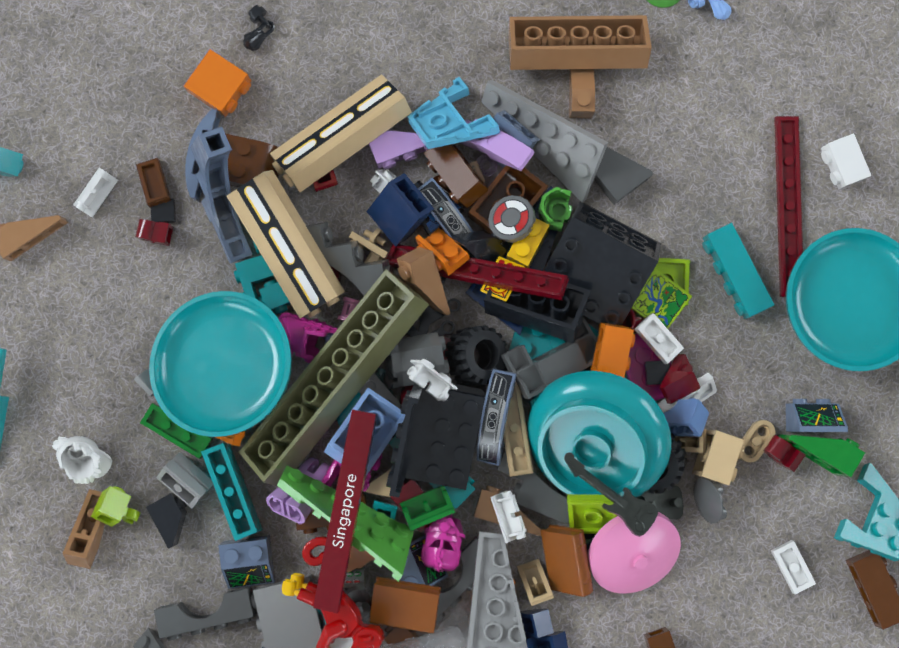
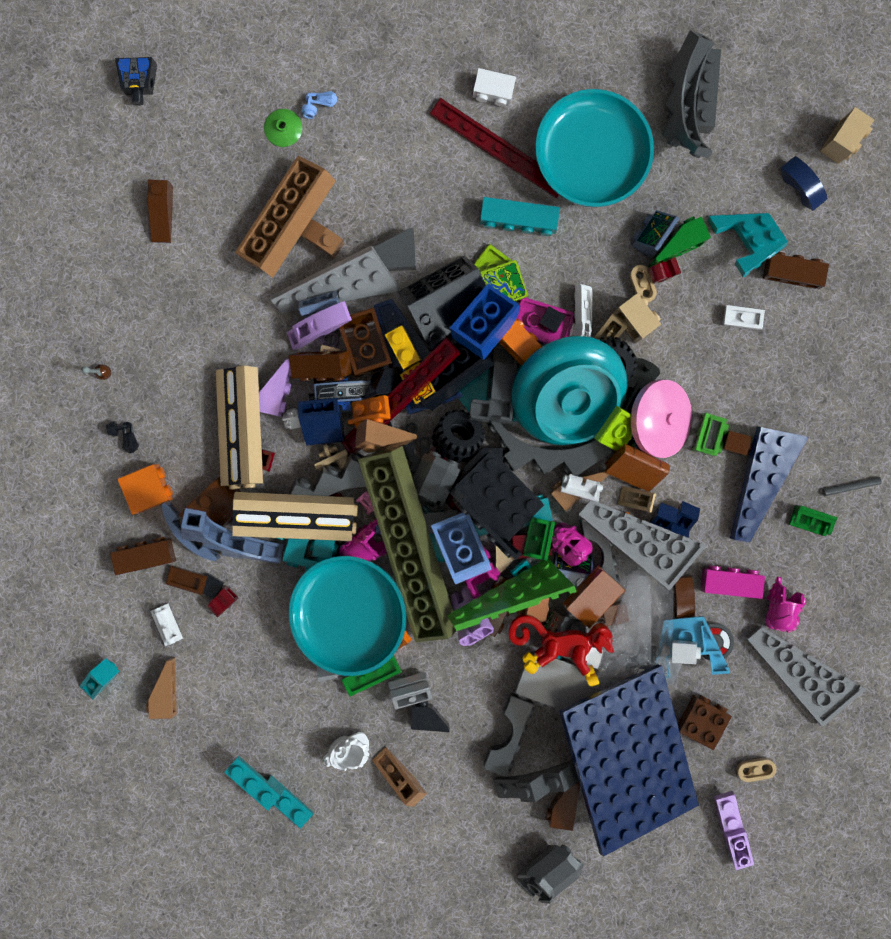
camera: 55 degrees left, 5 degrees up
(113, 507) = (395, 751): lime brick -> none
(149, 124) = (142, 556): none -> reddish brown brick
(231, 491) = (438, 664): teal brick -> none
(247, 561) = (493, 684): sand blue slope -> none
(345, 511) = (505, 595): dark red tile -> none
(424, 373) = (447, 480): white hinge -> none
(441, 124) = (280, 352): medium azure wing -> none
(494, 416) = (508, 451): slope -> none
(512, 218) = (380, 348): tile -> none
(516, 438) = (524, 444): tan tile -> none
(555, 208) = (392, 313): bright green hair -> none
(610, 303) = (485, 321): none -> blue brick
(635, 513) = (637, 401): pearl dark grey piece -> none
(651, 614) = (710, 435): none -> bright green window
(659, 338) = (532, 302): white plate -> none
(679, 380) = (567, 308): dark red slope -> none
(687, 418) = (596, 321): medium blue arch -> none
(709, 500) = (661, 343): dark grey dish -> none

